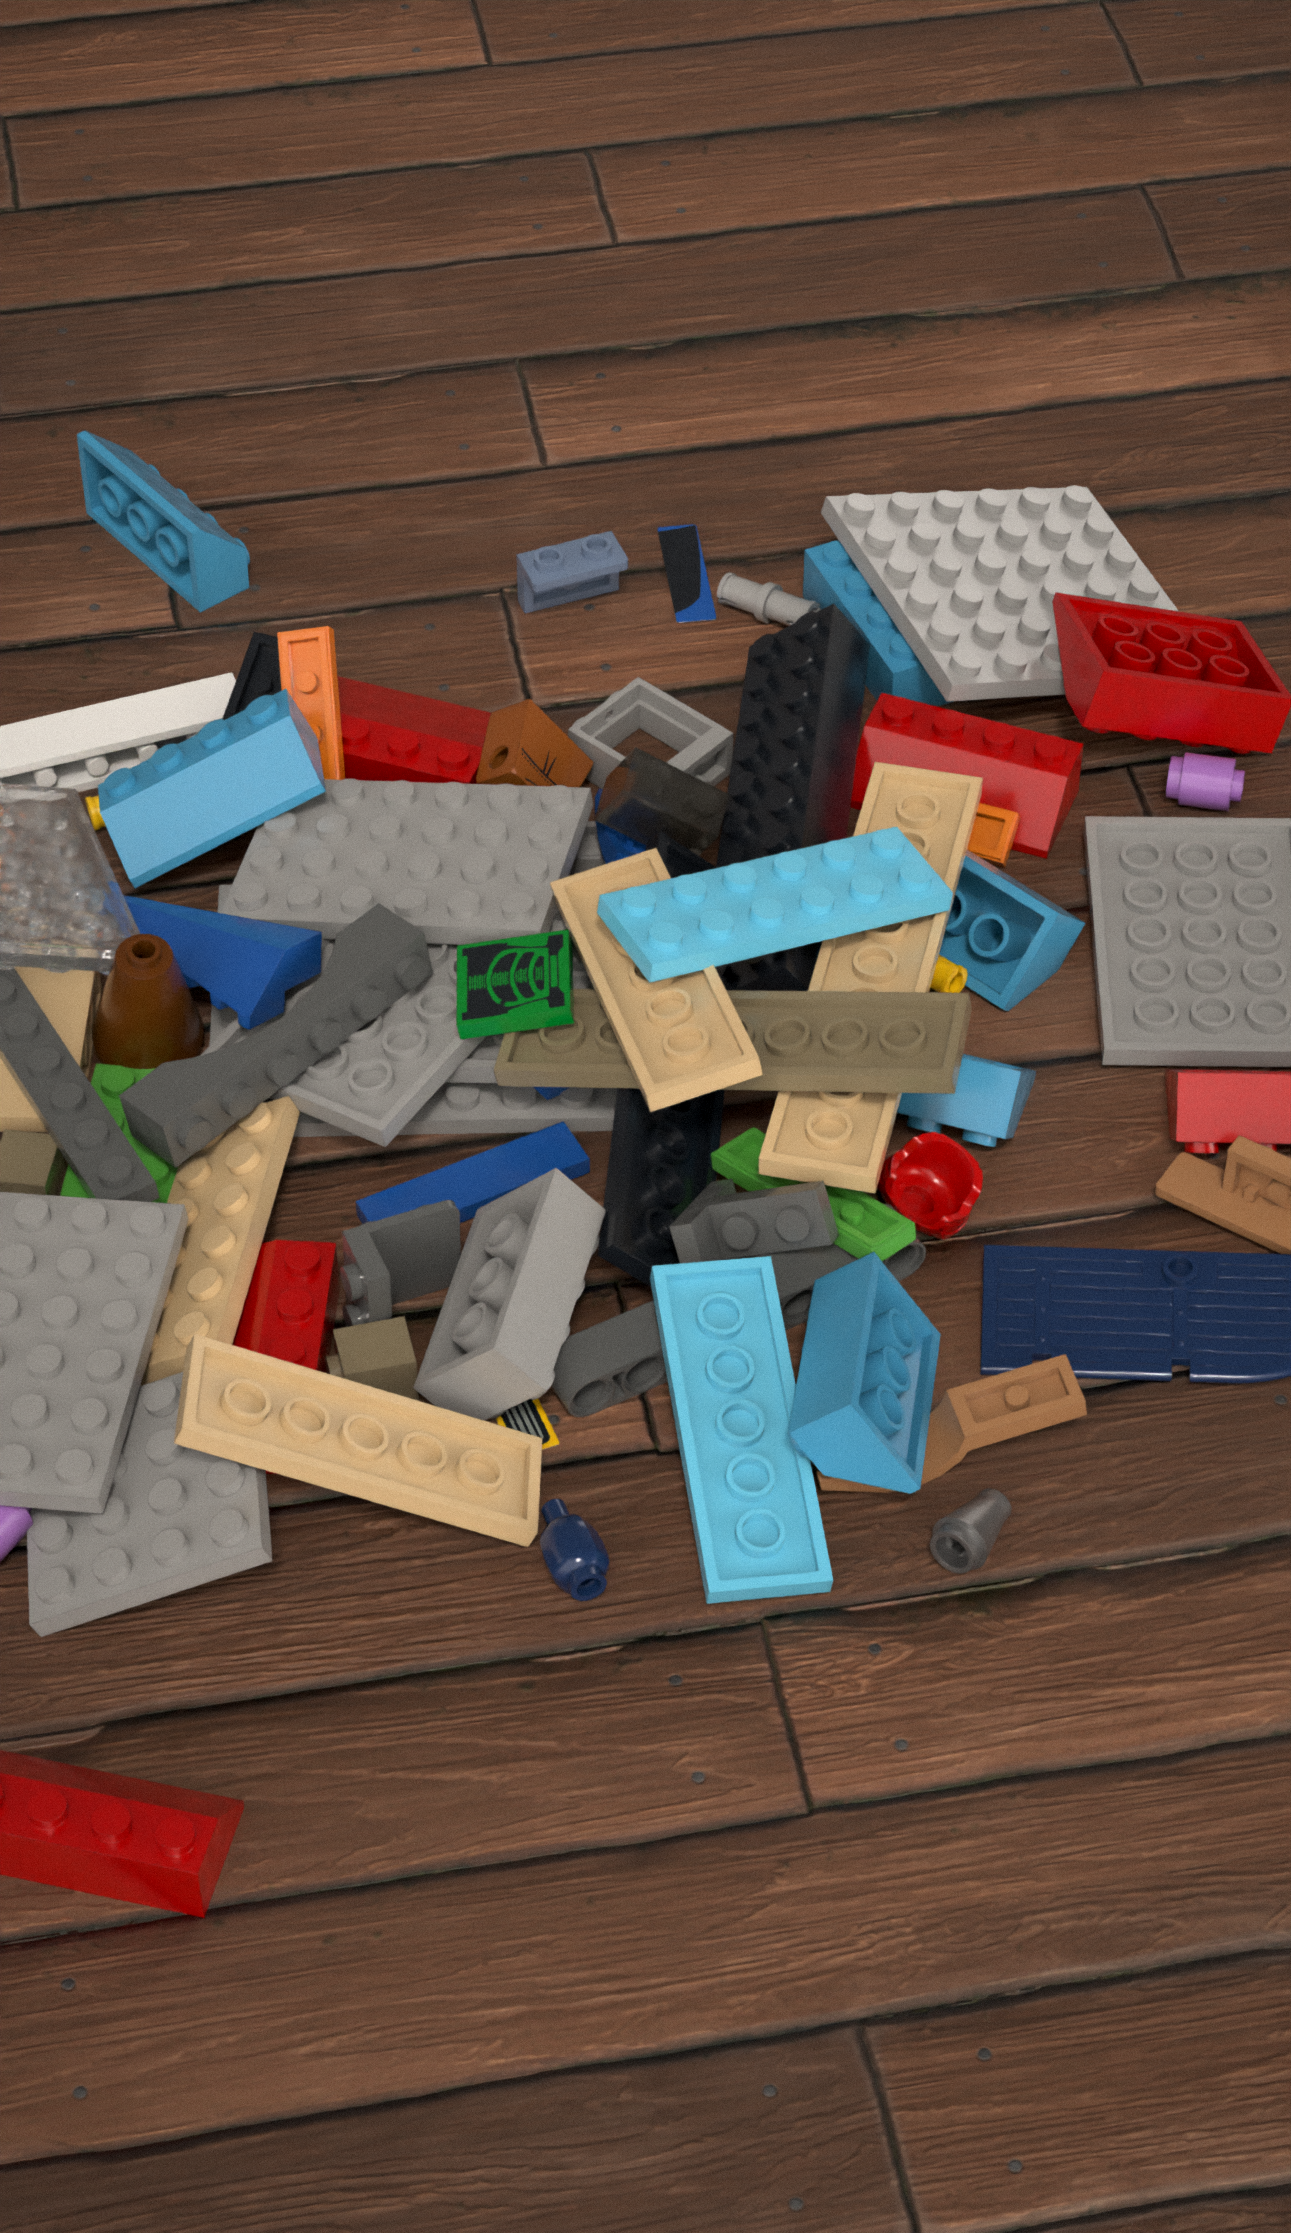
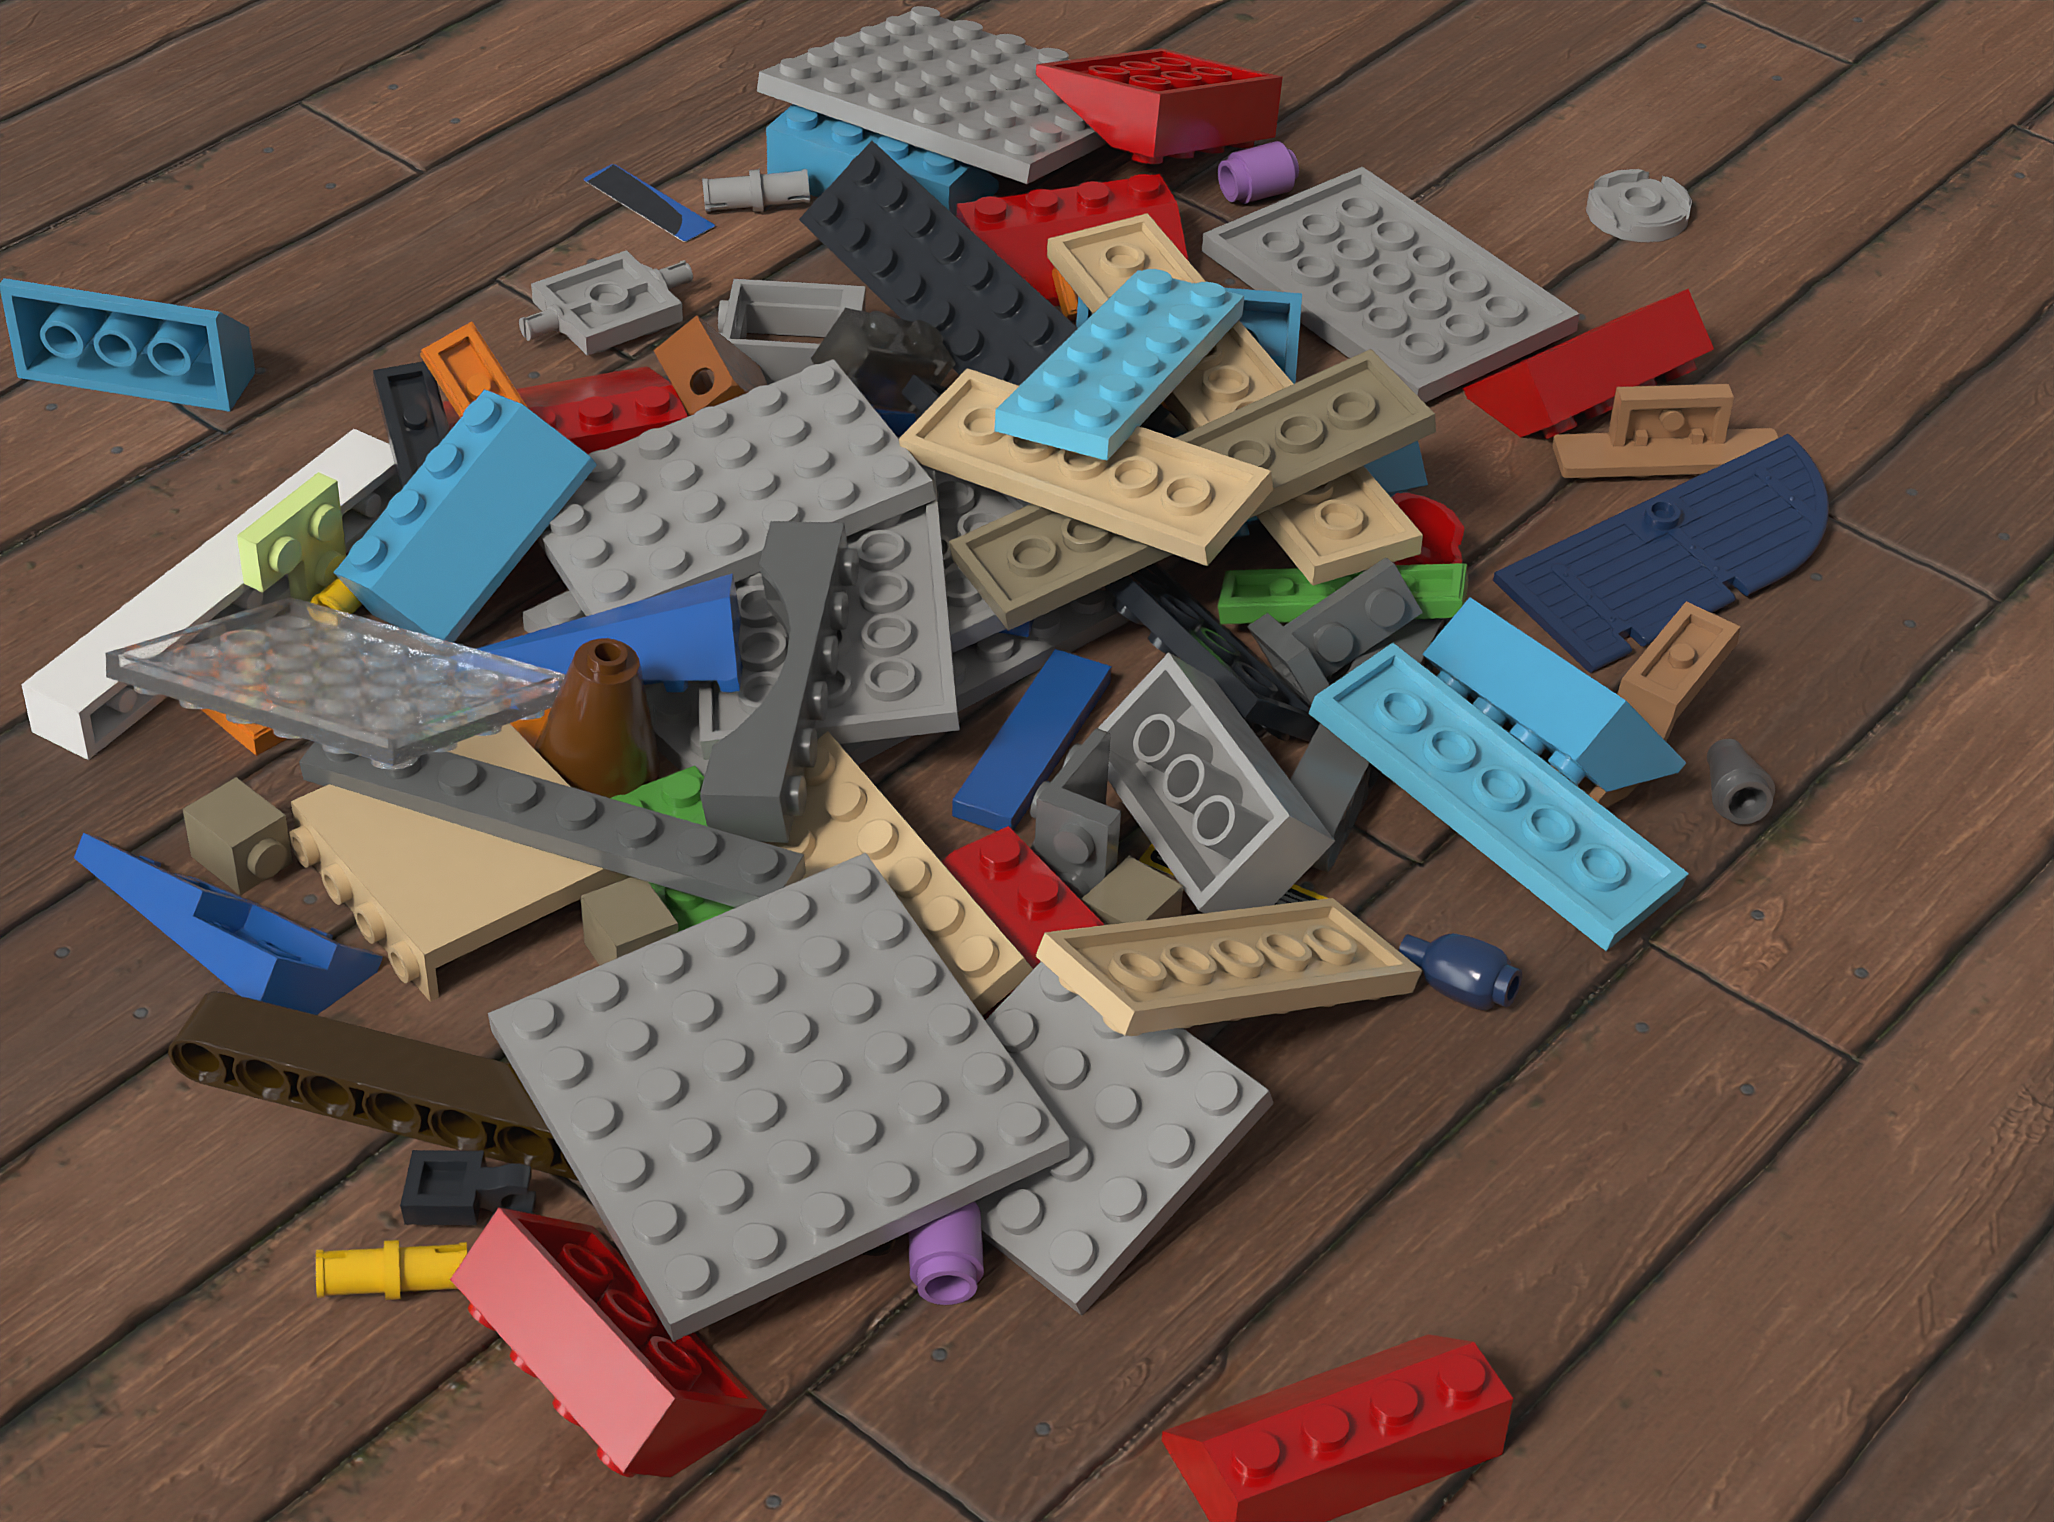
camera: 40 degrees left, 5 degrees down
(96, 738) = (297, 539): none -> yellowish green plate
(514, 984) = (952, 535): green tile -> none
(547, 650) = (607, 302): none -> light grey plate
(569, 571) = (565, 229): sand blue bracket -> none

